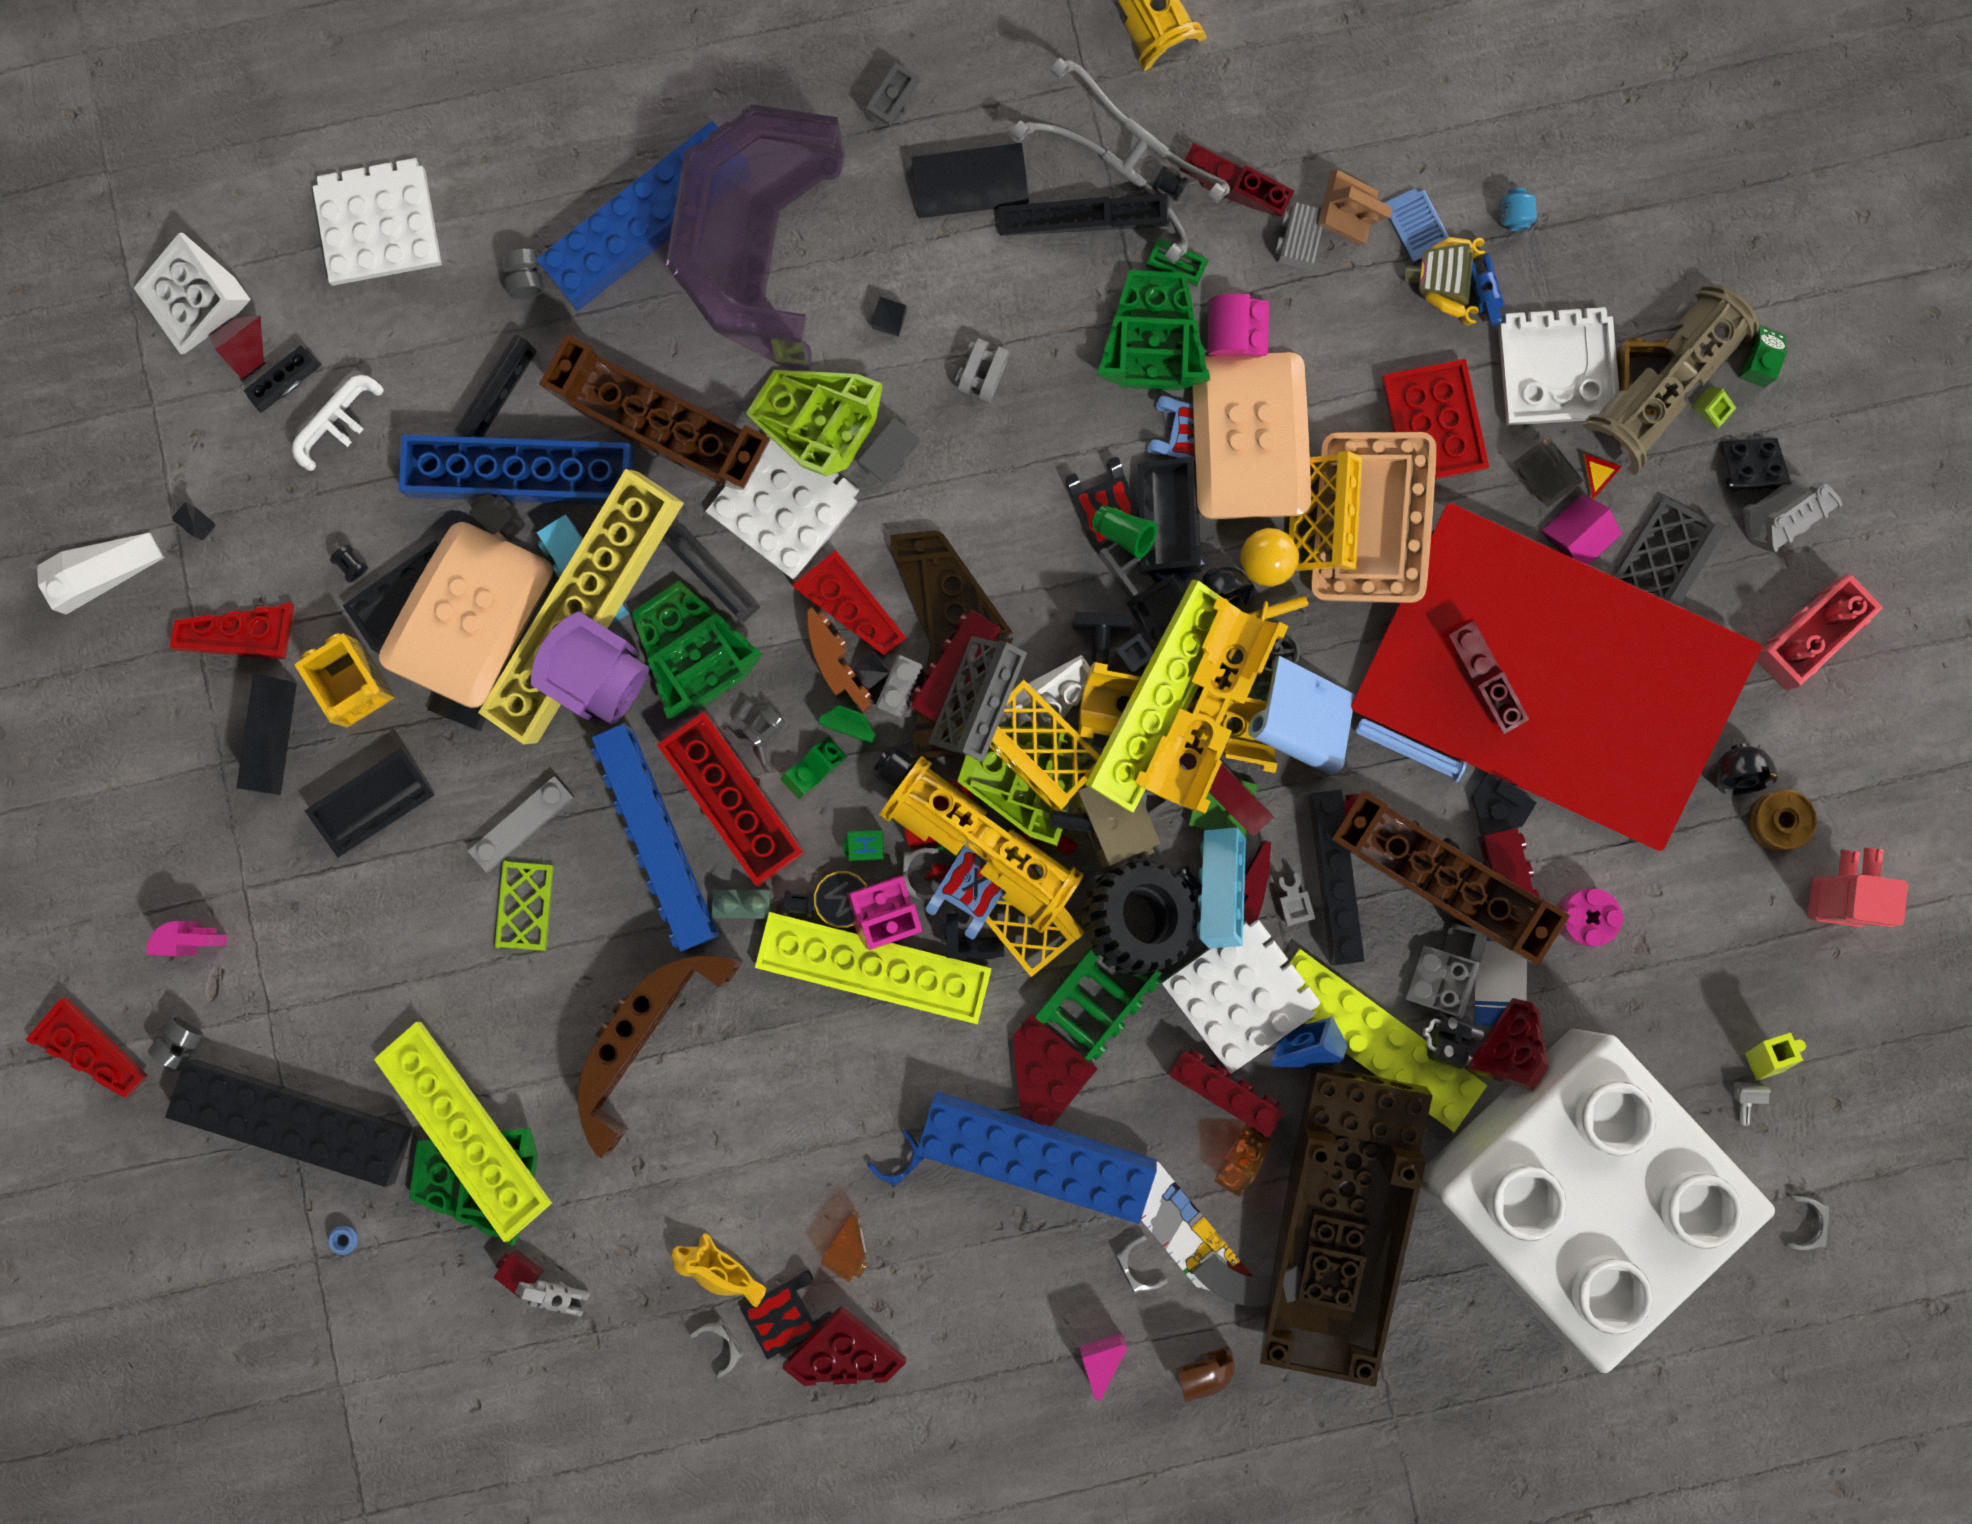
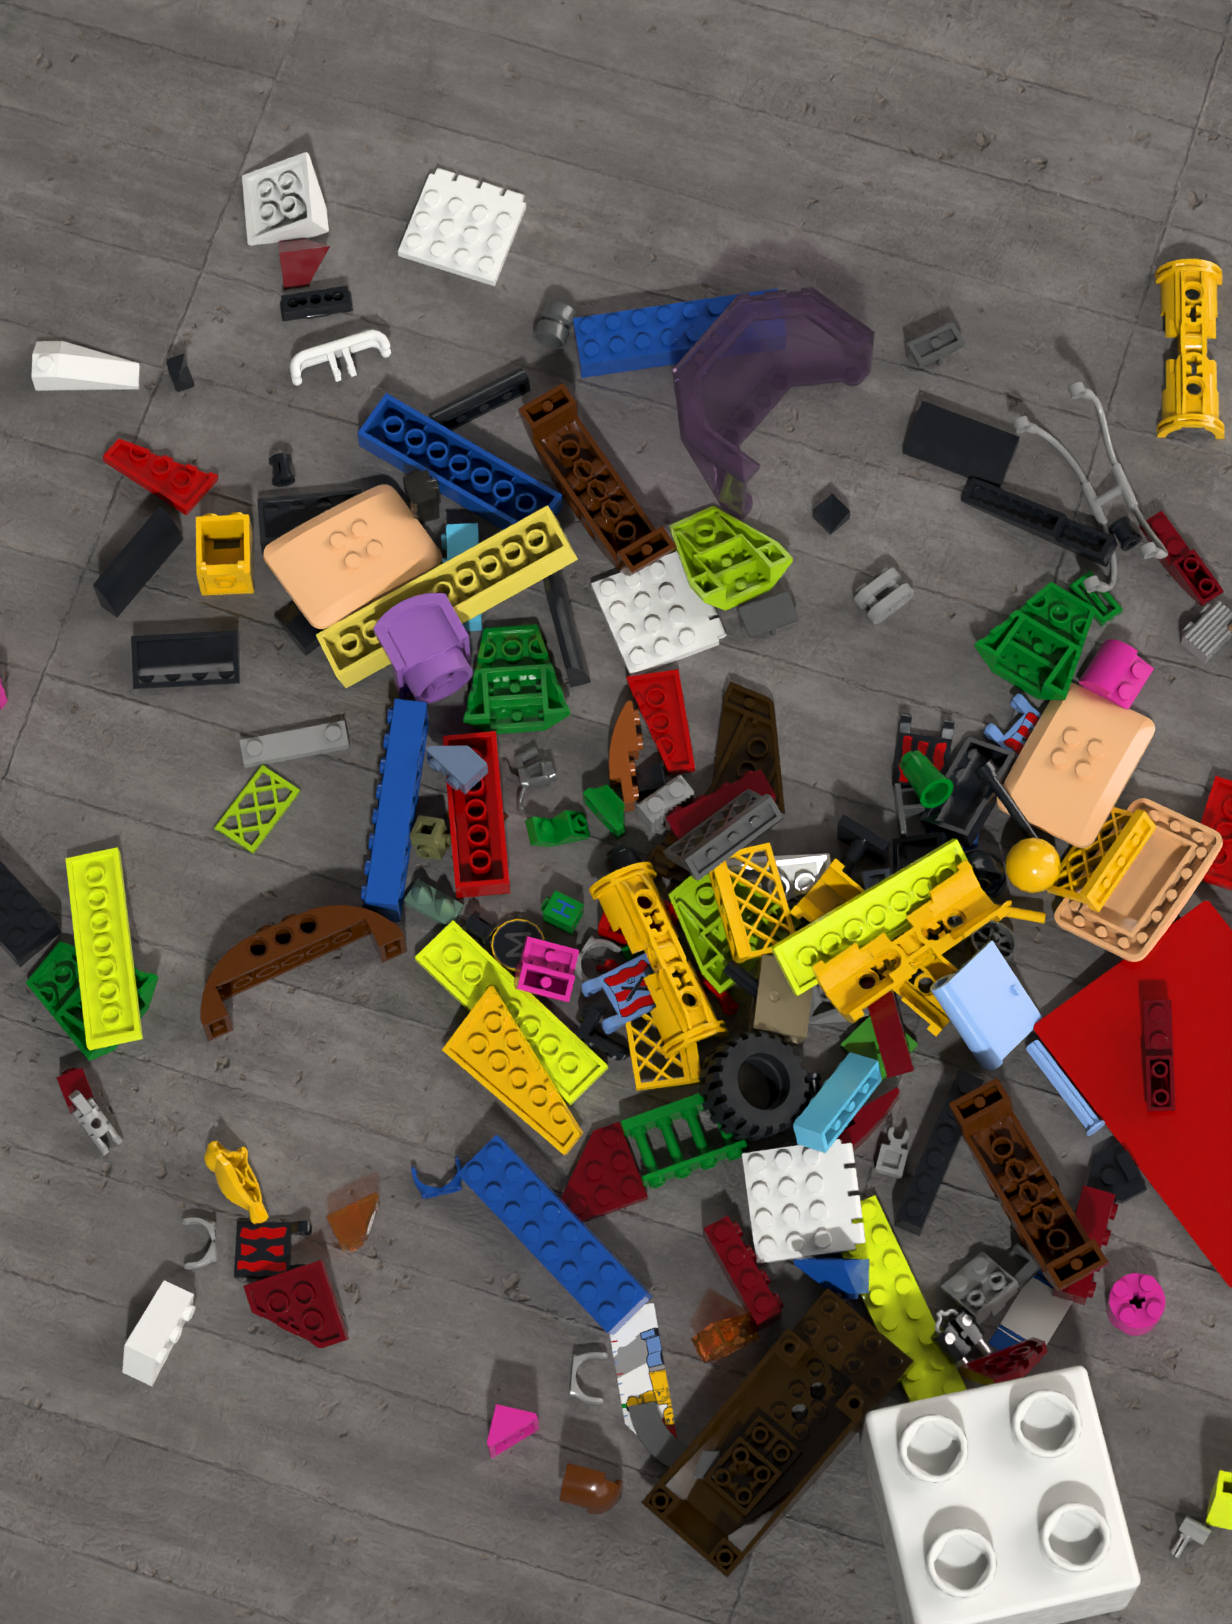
camera: 30 degrees right, 15 degrees down
(690, 767) = (458, 764): none -> sand blue slope
(702, 847) = (430, 837): none -> olive brick
(730, 1455) = (157, 1332): none -> white wedge
(894, 1021) = (501, 1059): none -> yellow wing
(1181, 493) = (988, 773): none -> black piece

